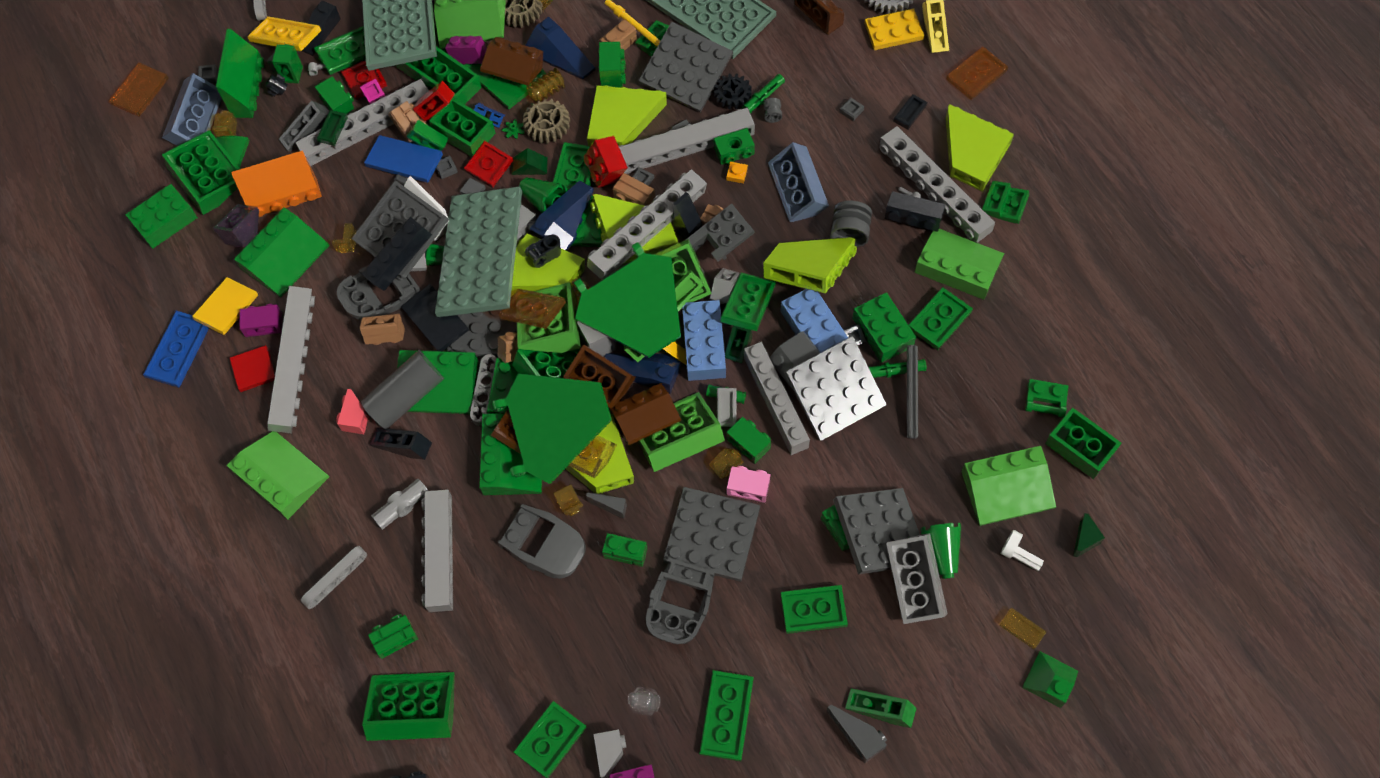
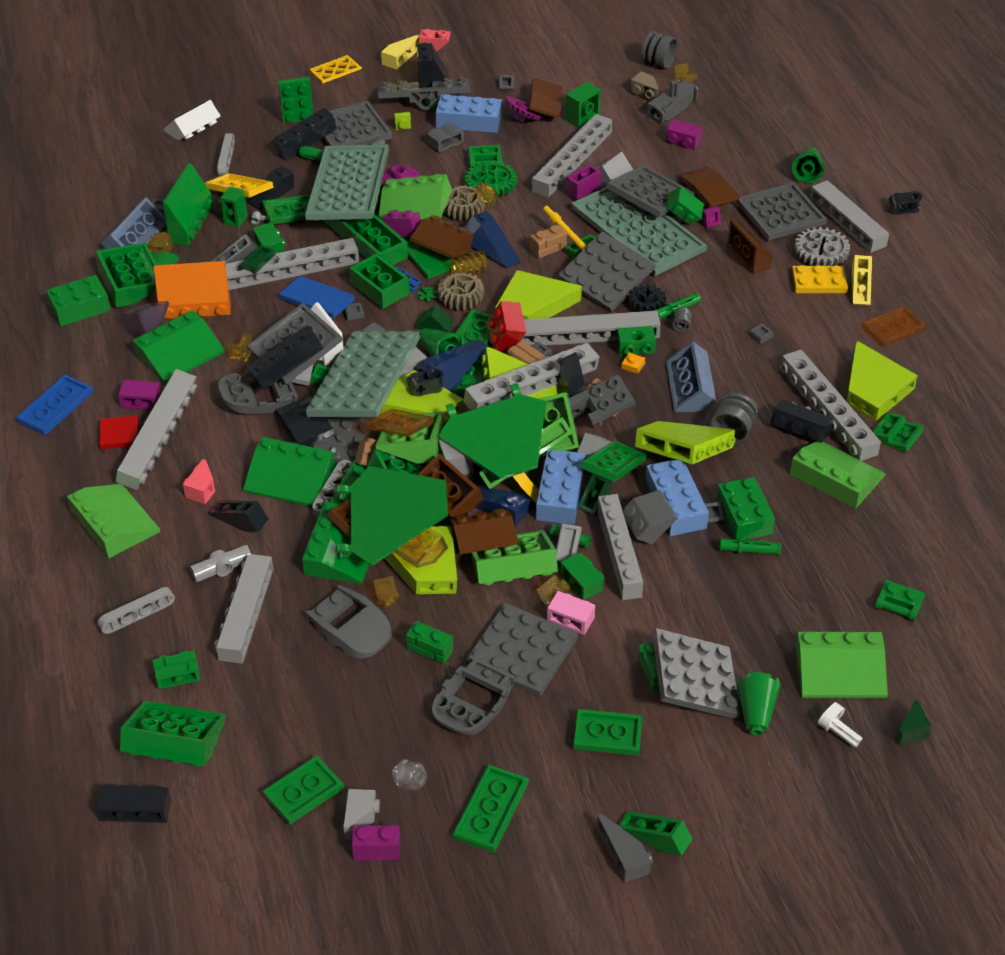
camera: 10 degrees right, 20 degrees down
(138, 89) = (92, 207): clear orange tile -> none
(224, 305) = (109, 378): yellow tile -> none
(276, 85) = (218, 222): black gear -> none
(359, 76) = (300, 233): red tile -> none
(372, 91) = (304, 238): dark pink brick -> none
(382, 329) = (251, 420): medium nougat brick -> none
(402, 390) = (254, 468): dark grey brick -> none
(404, 118) = (330, 267): medium nougat brick -> none
(427, 136) = (344, 280): green slope -> none
(433, 101) = (358, 252): red brick -> none
(488, 164) = (395, 314): red tile -> none
(608, 503) = (425, 601): dark grey slope -> none
(612, 64) = (535, 255): green brick -> none
(835, 388) = (681, 546): plate -> none
(910, 112) = (819, 345): black tile -> none
(912, 392) = (760, 565): dark grey axle -> none
(917, 578) = (722, 720): light grey slope -> none
(940, 318) = (805, 513): green plate -> none
(1022, 628) = (825, 795): clear yellow tile -> none
(1050, 679) = (844, 847): green slope -> none
(1083, 443) = (928, 641): green brick -> none

